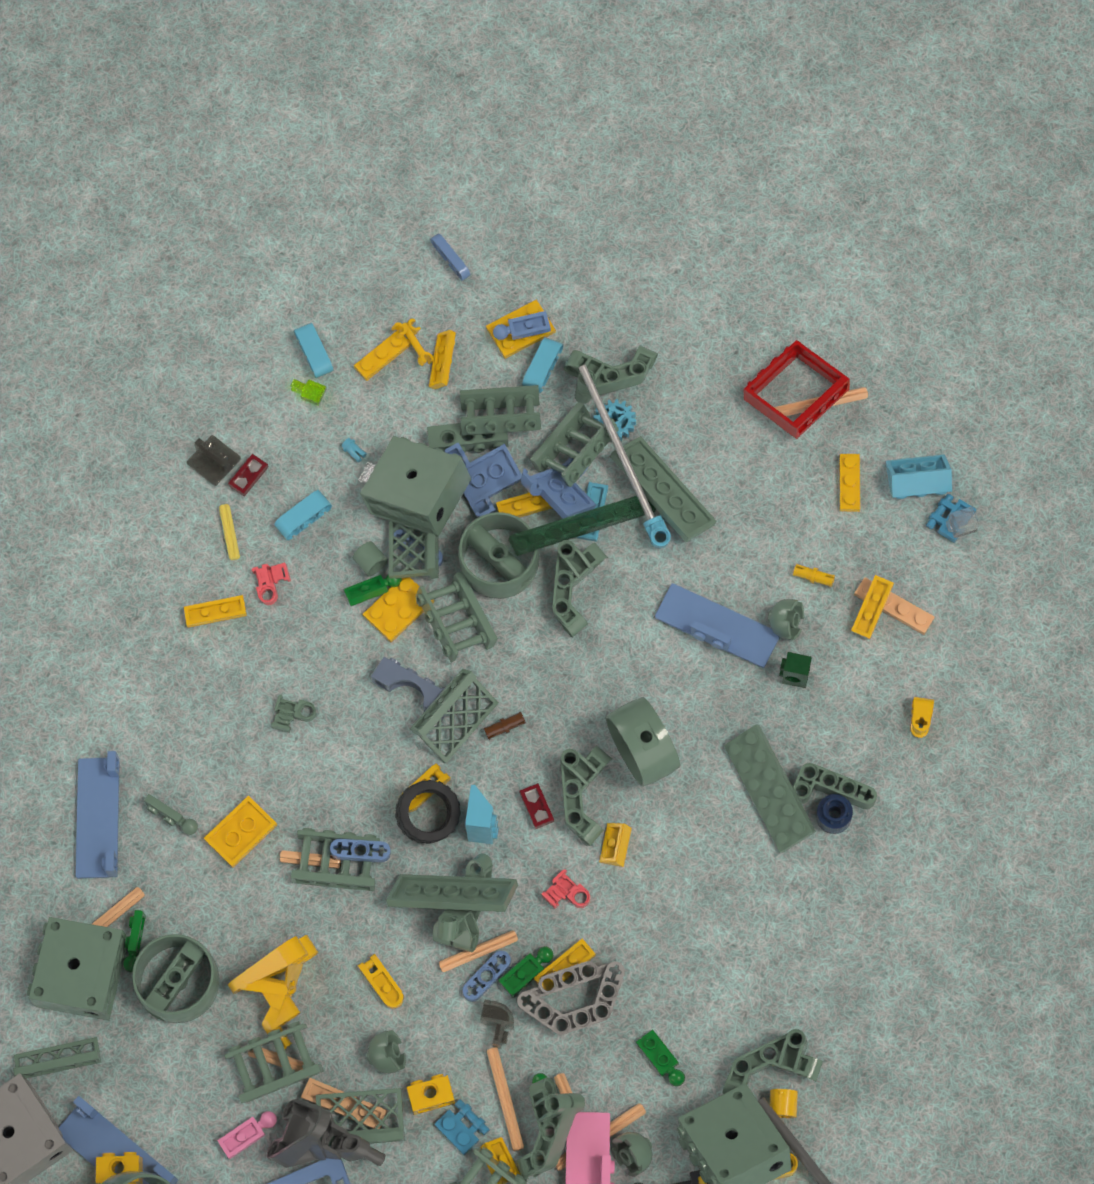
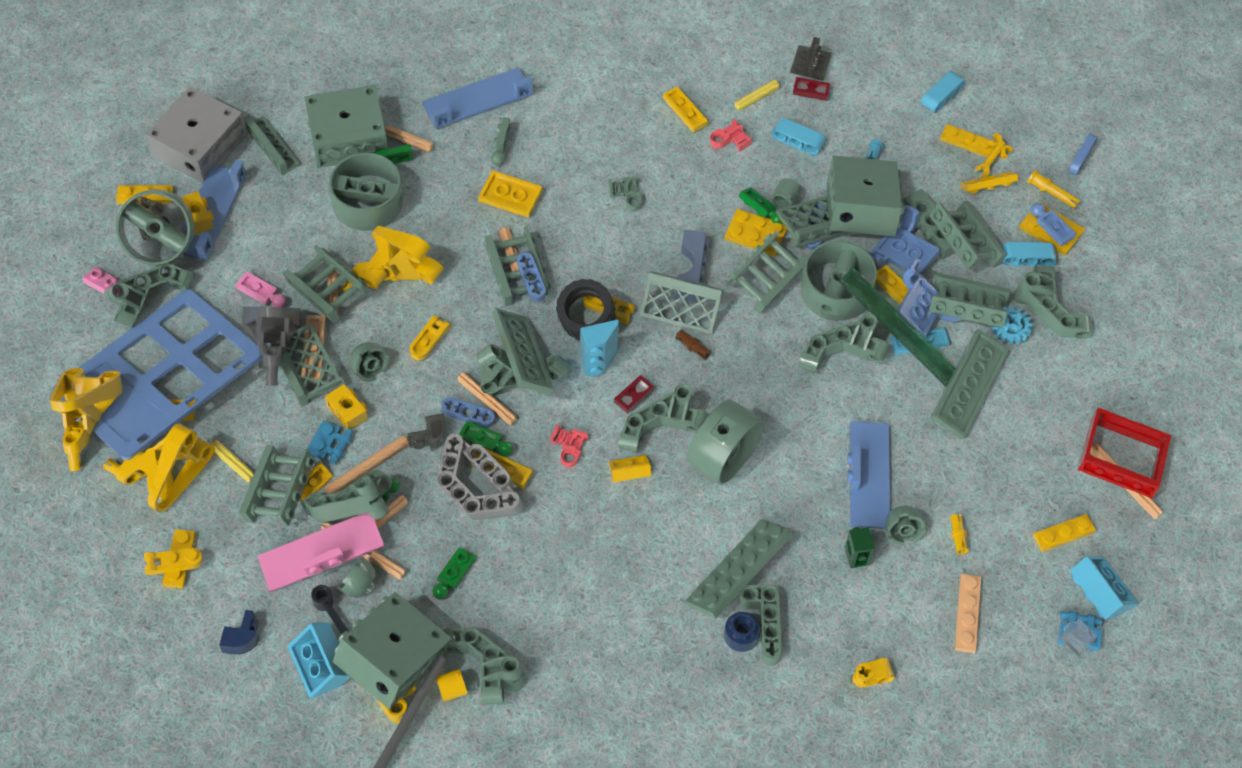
camera: 60 degrees right, 10 degrees down
(311, 391) = (906, 103): clear neon green plate -> none
(470, 309) = (1046, 185): none -> yellow pin
(654, 524) = (933, 387): flat silver piece -> none
(872, 606) = (954, 590): yellow plate -> none

